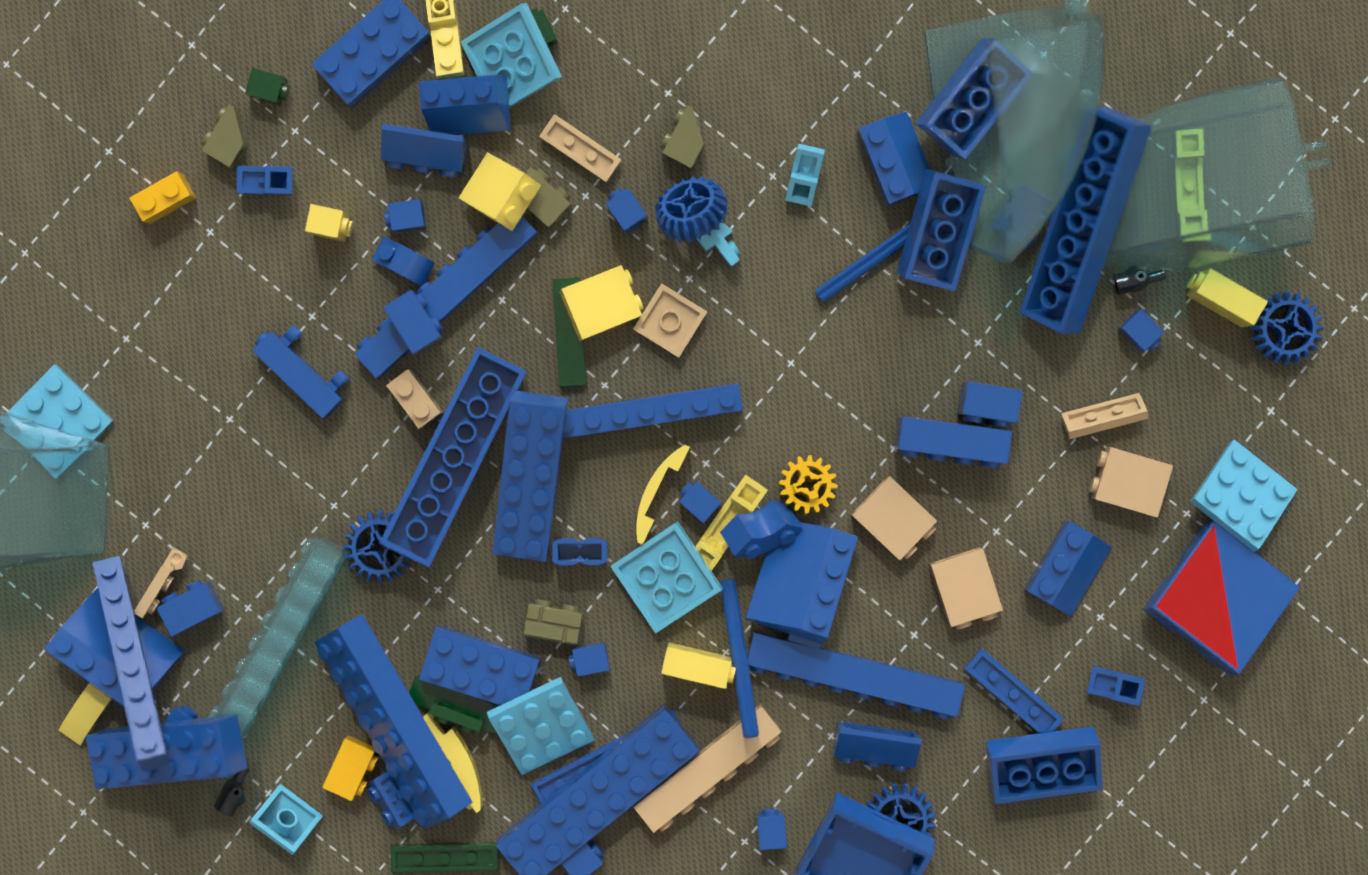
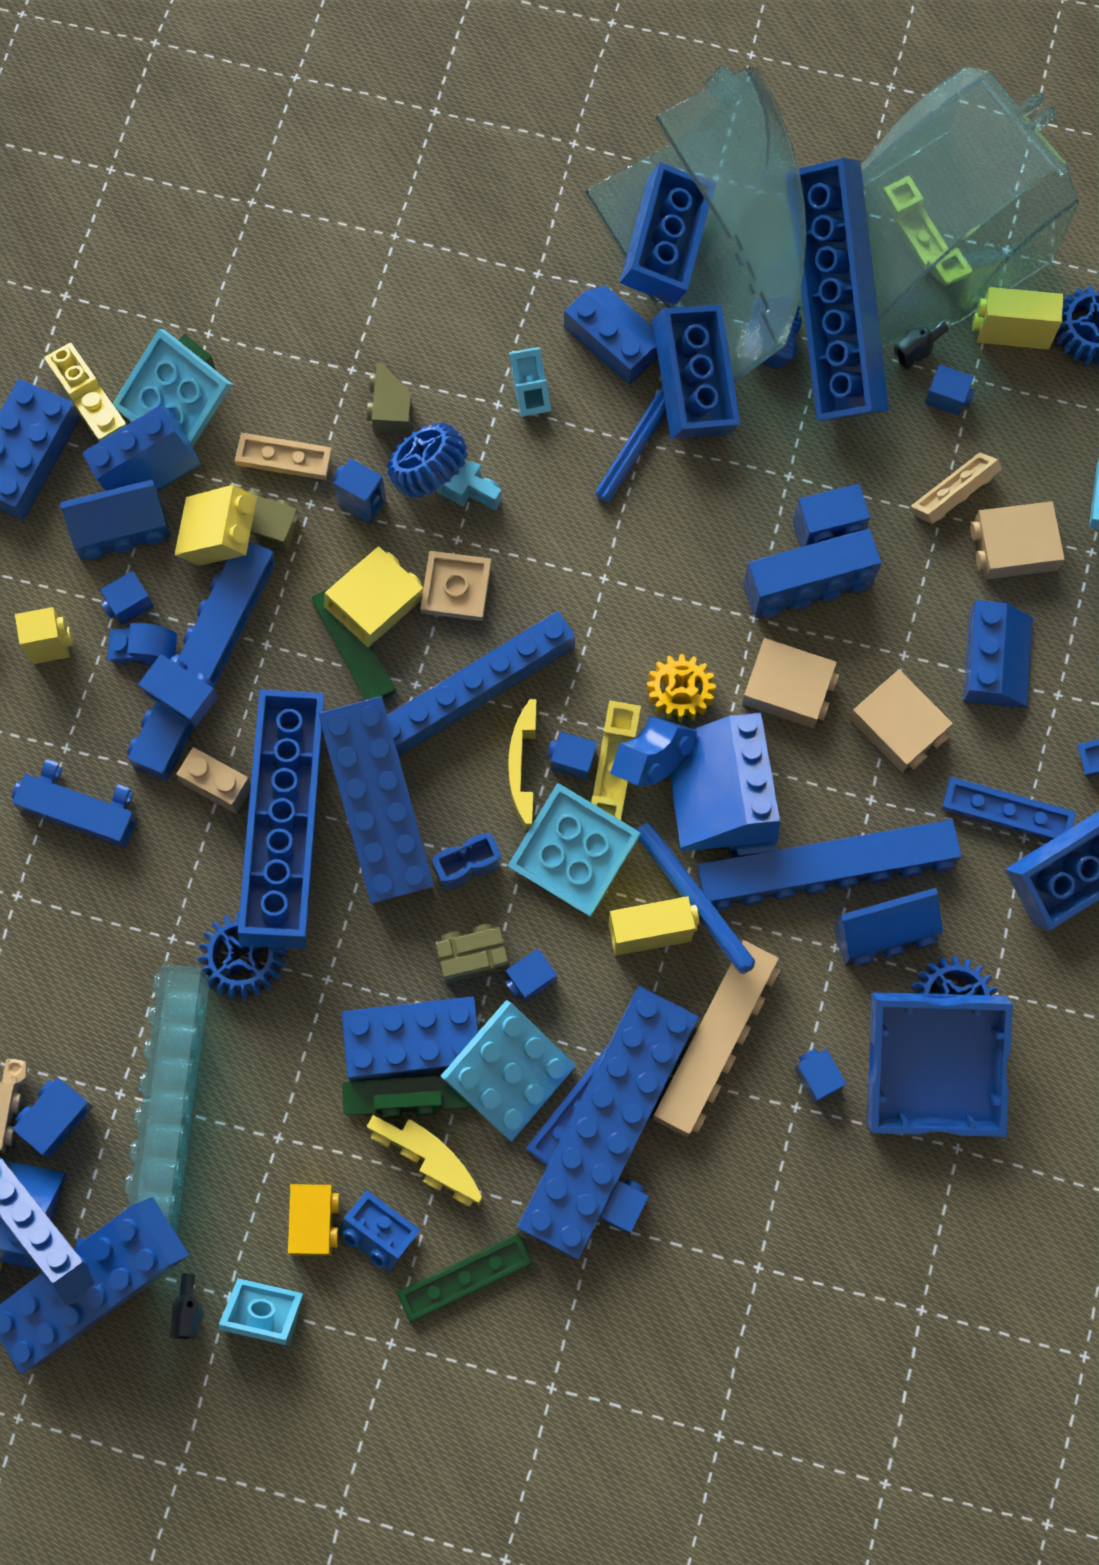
camera: 25 degrees left, 15 degrees down
(393, 722) = (338, 1139): blue brick -> none

